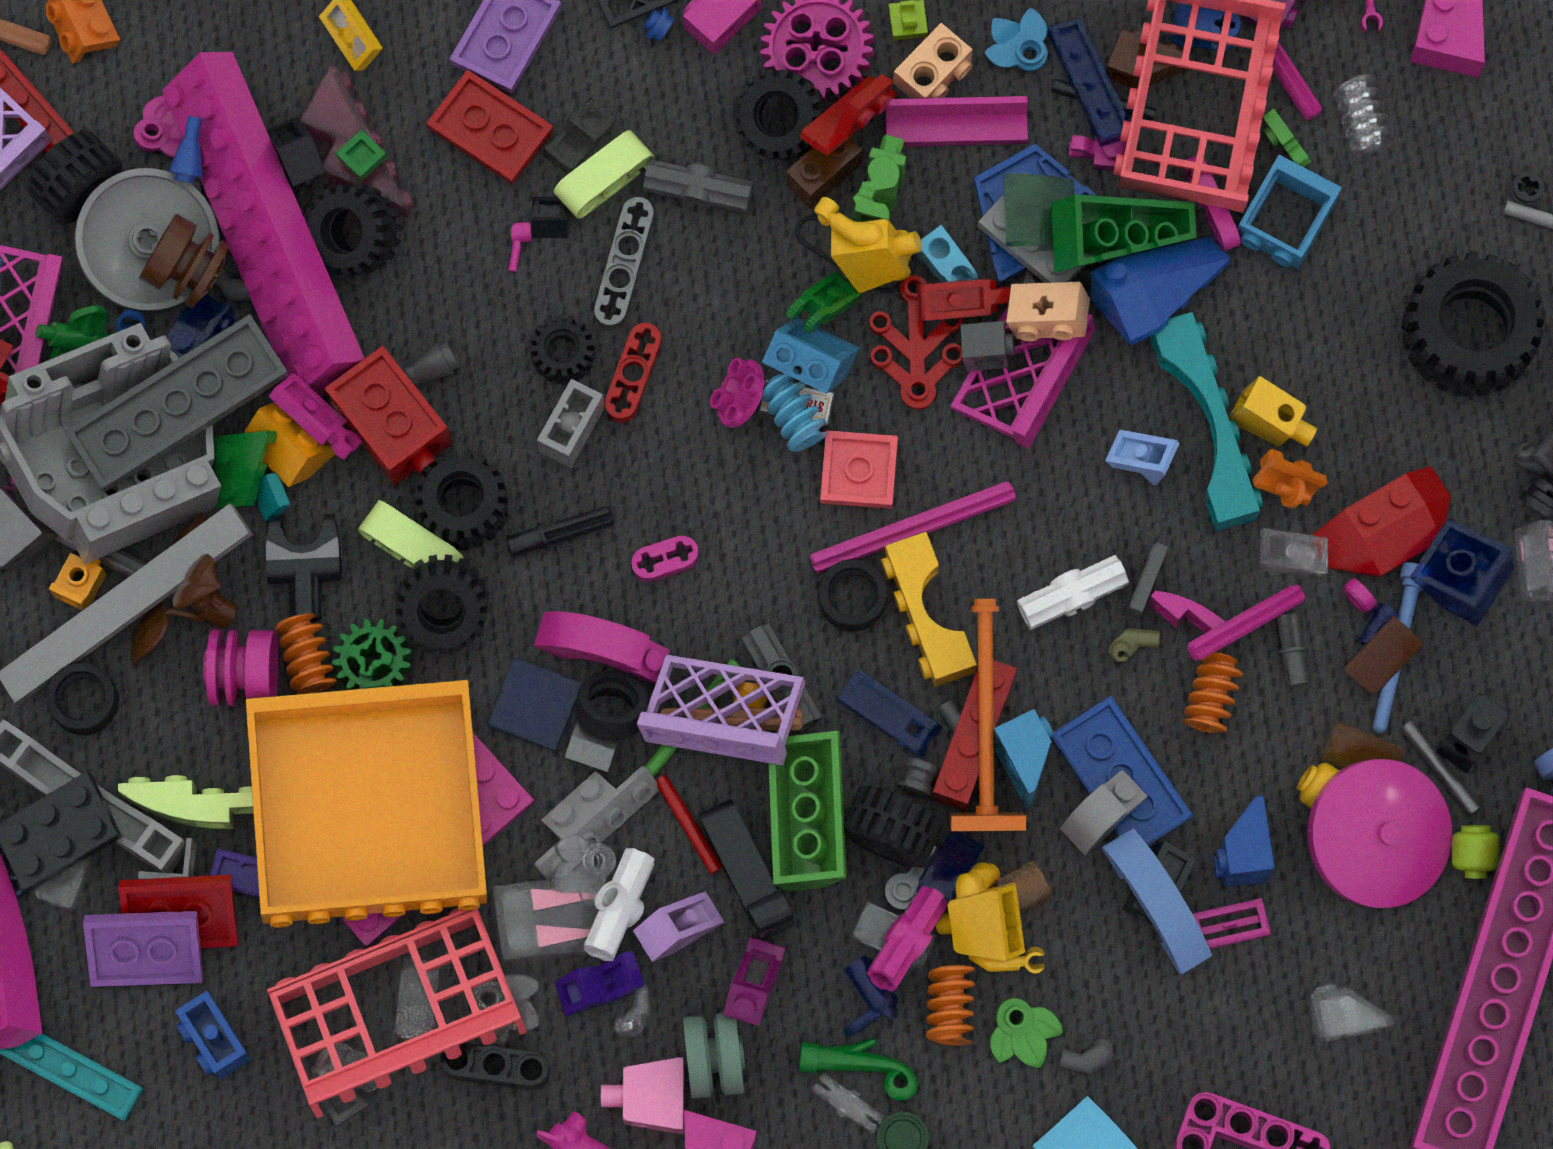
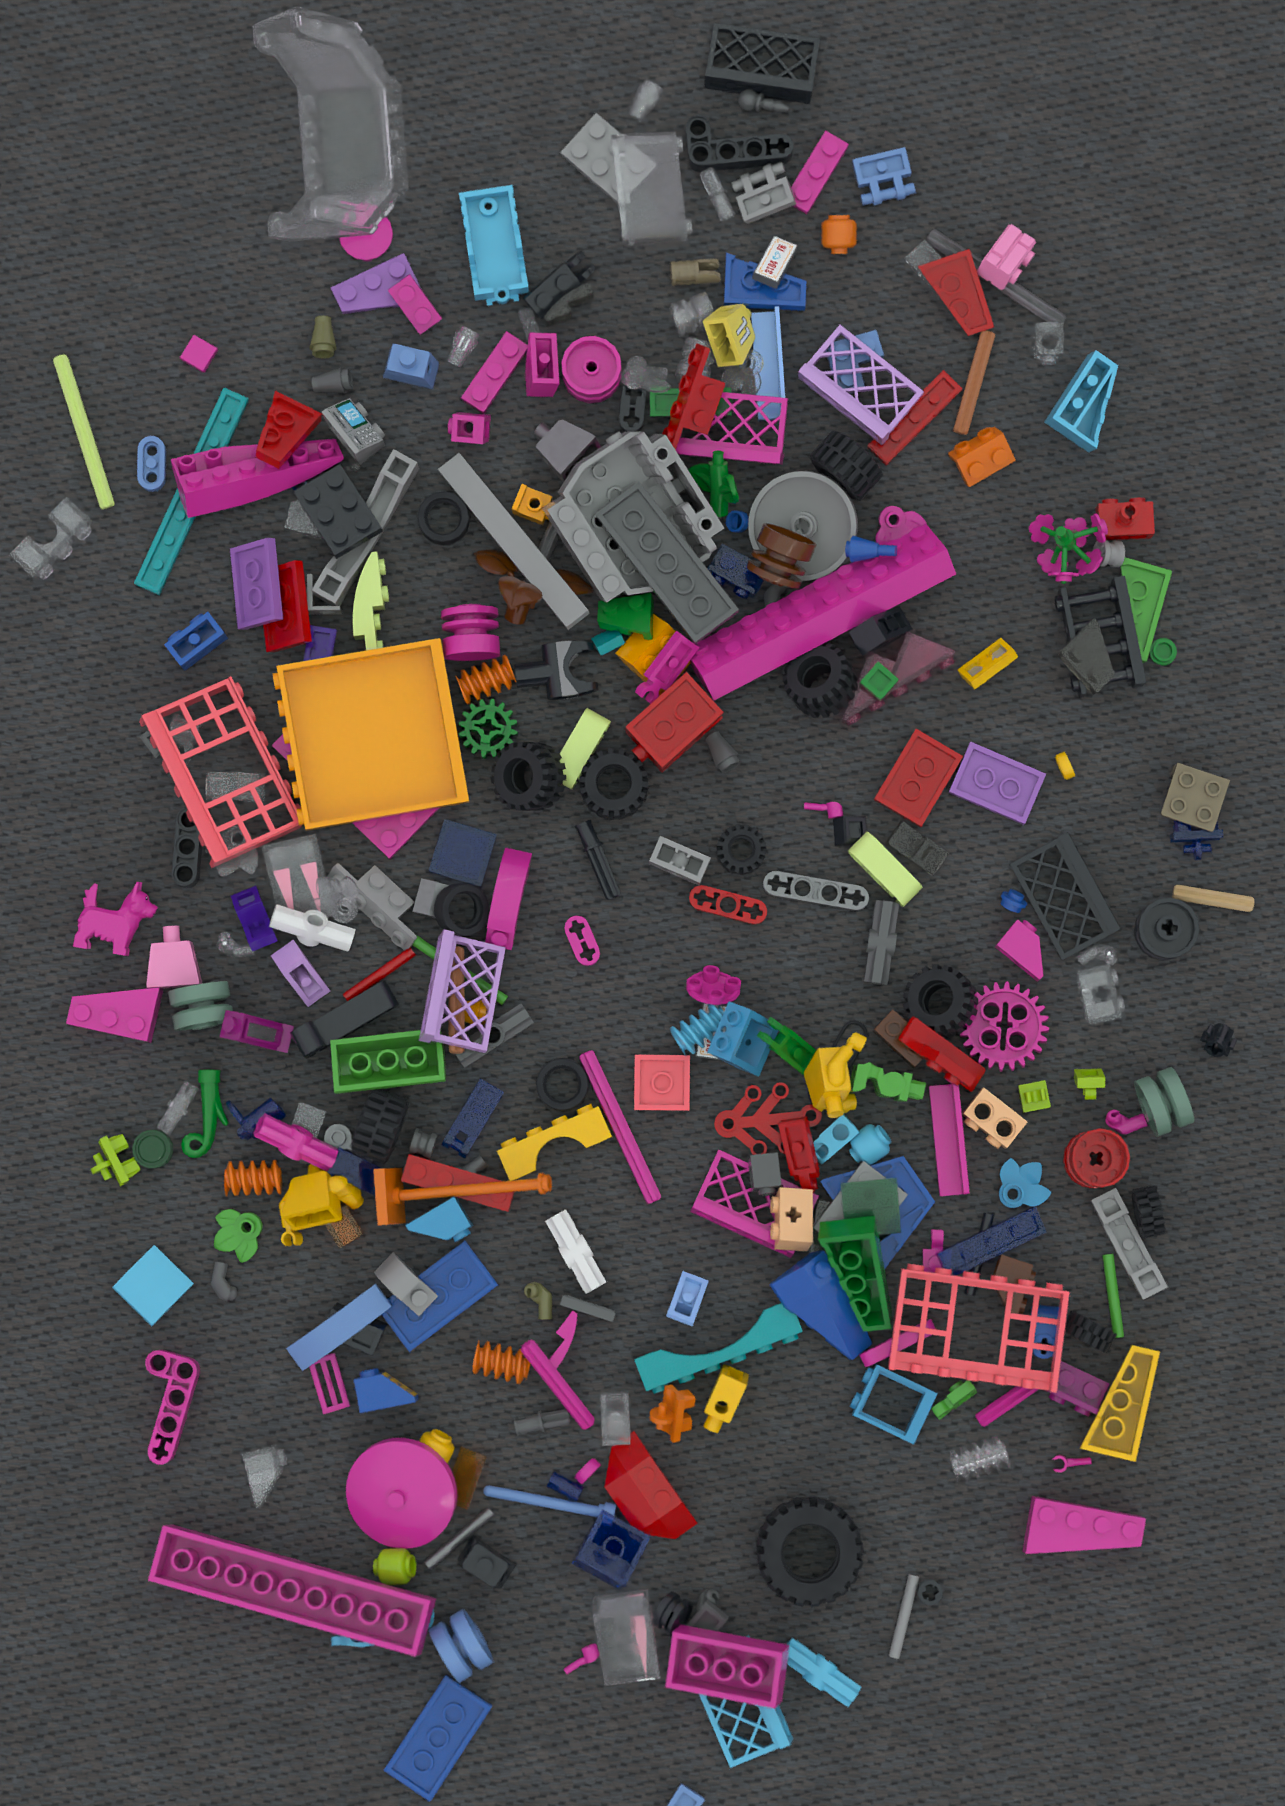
camera: 85 degrees right, 10 degrees up
(957, 216) = (870, 1144): none -> medium azure head
(1383, 655) = (539, 1491): reddish brown slope -> none

